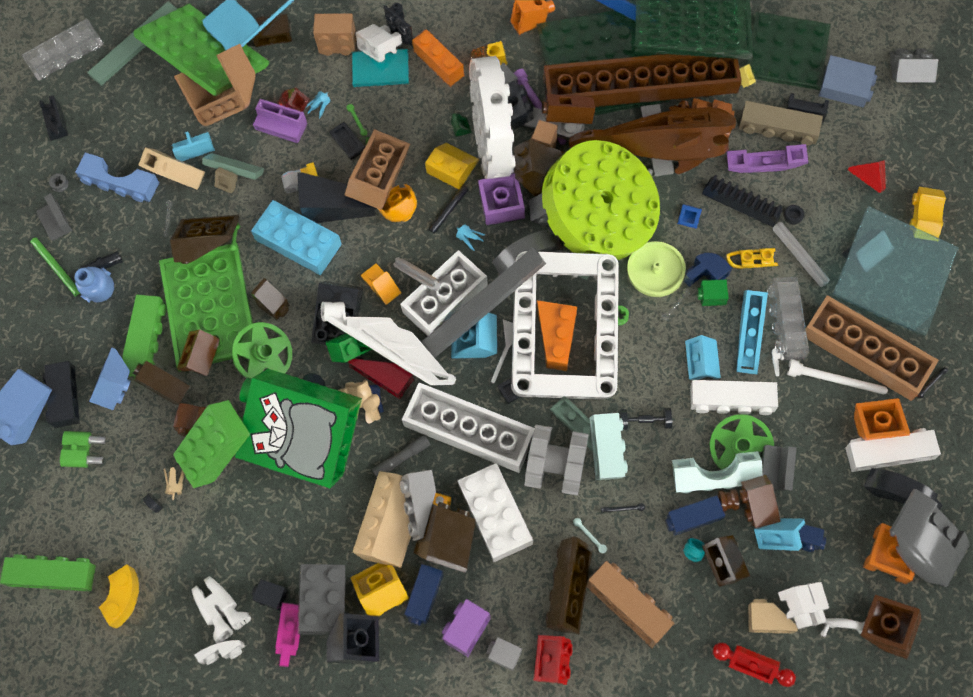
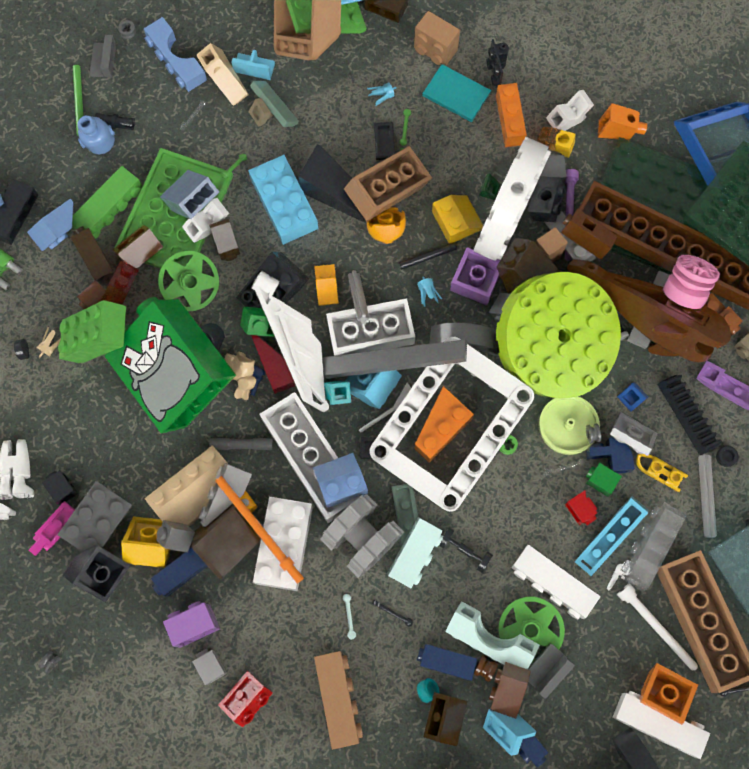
camera: 30 degrees right, 5 degrees up
(201, 235) = (206, 148): dark brown slope -> none
(204, 389) = (120, 283): none -> clear red brick
(215, 279) = (189, 194): none -> sand blue brick
(241, 297) = (198, 226): none -> white brick
(279, 121) = (338, 88): medium lavender piece -> none
(290, 178) = (332, 149): light grey leg -> none
(293, 99) = (360, 78): clear red brick -> none
(377, 41) = (469, 68): white hips -> none
(402, 563) = (175, 536): none -> dark grey brick
(454, 361) = (337, 392): none -> teal brick
(486, 26) = (570, 114): none -> white brick
(508, 426) = (340, 480): none -> medium blue slope
(511, 522) = (286, 563): none -> orange bar
(569, 586) = (299, 649): dark brown slope -> none
(675, 95) = (691, 281): none -> bright pink wheel
(681, 261) = (593, 433): none -> dark grey bush
(702, 358) = (553, 530): medium azure panel -> none
(712, 241) = (634, 434): none -> light grey plate
(713, 326) = (582, 509): none -> red window

